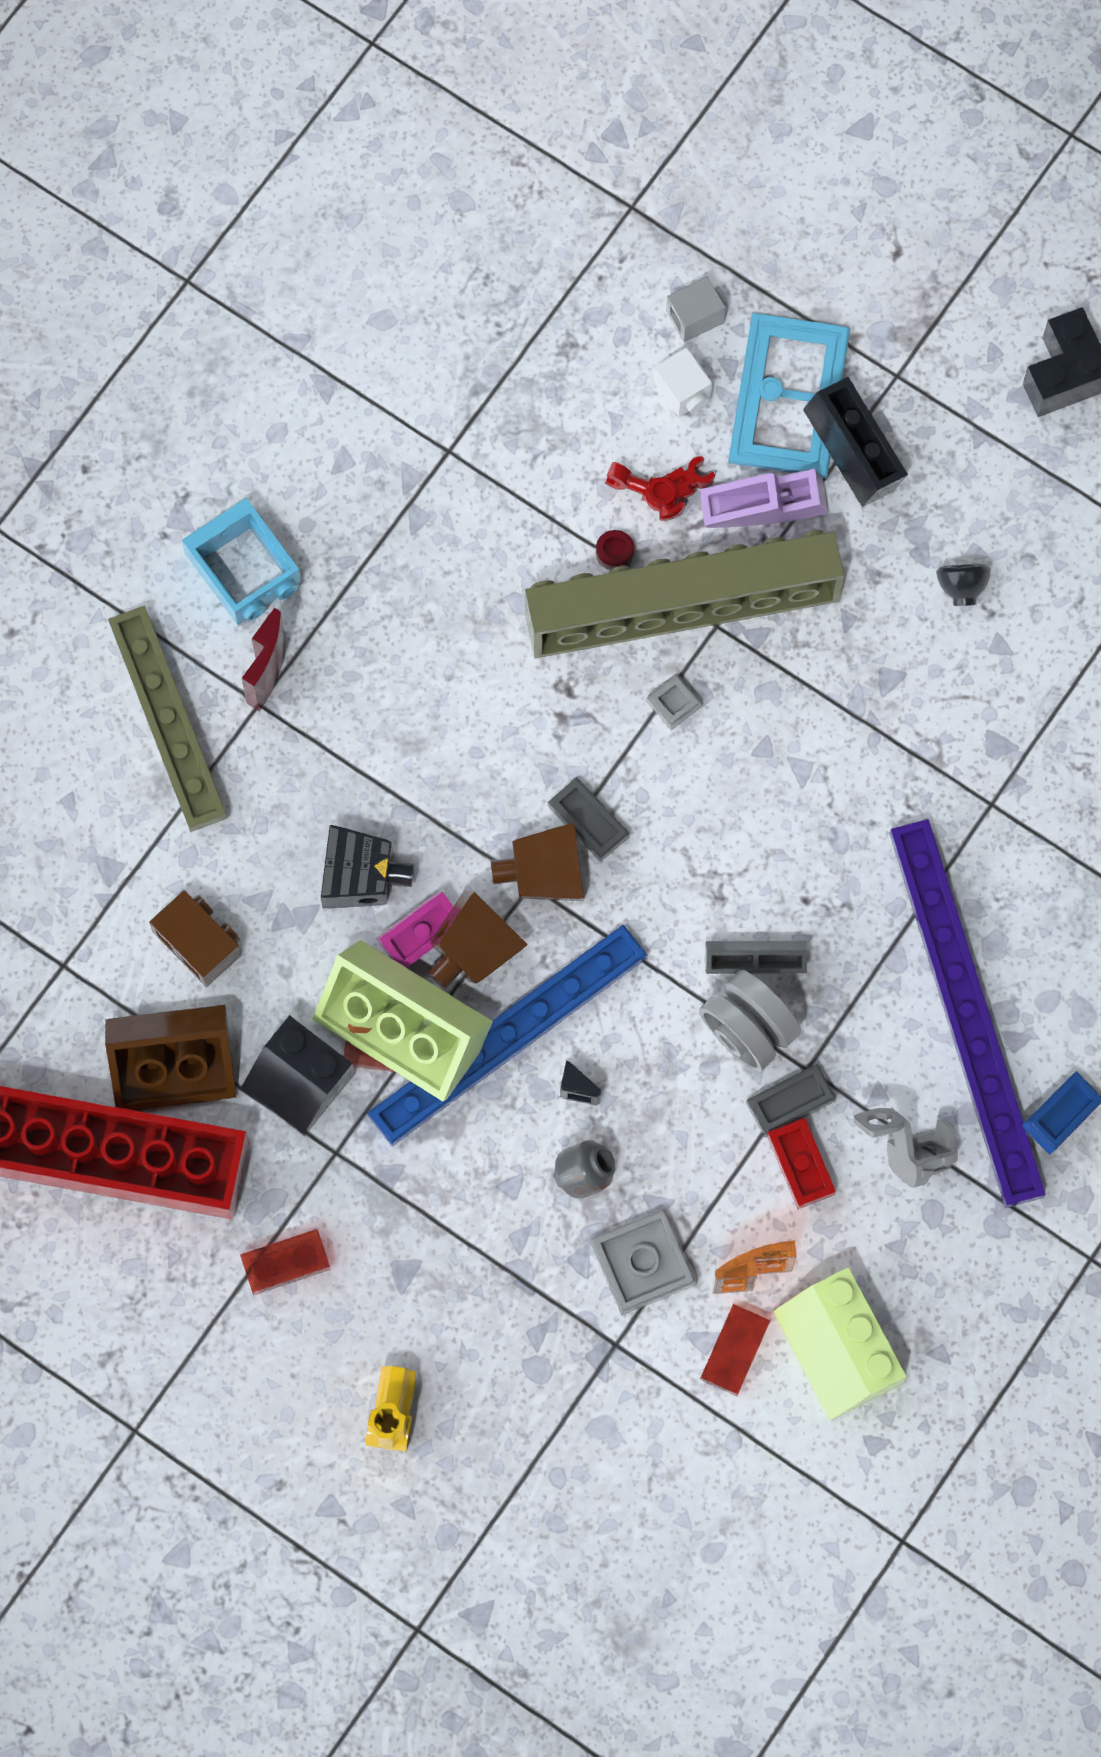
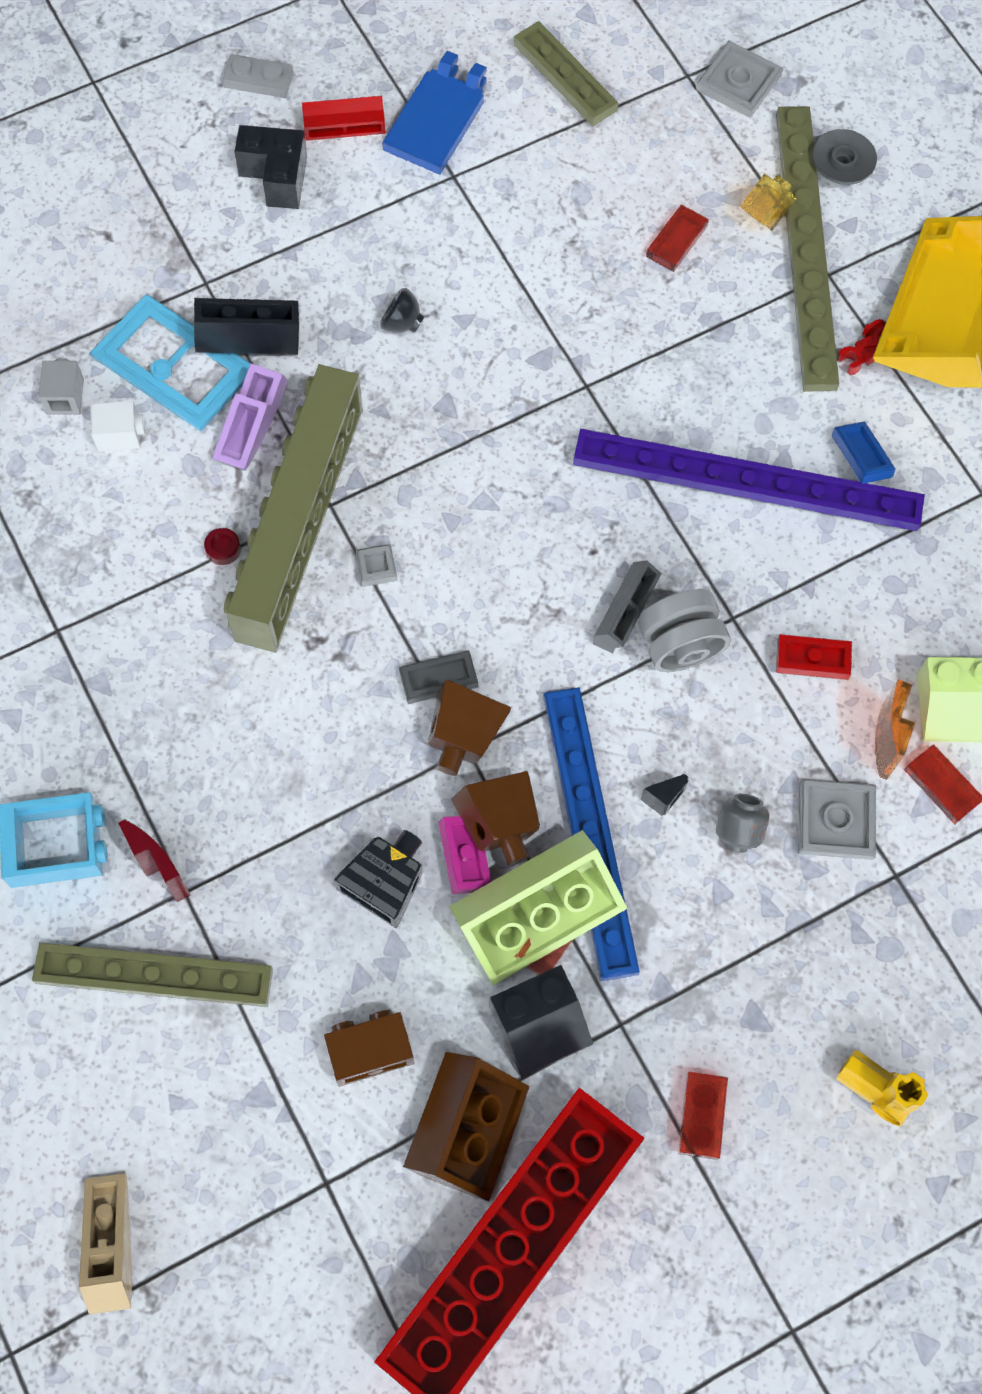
camera: 65 degrees left, 5 degrees down
(664, 491) = (196, 487): red piece -> none
(791, 1100) = (755, 641): dark grey tile -> none
(901, 1148) = (848, 564): light grey piece -> none

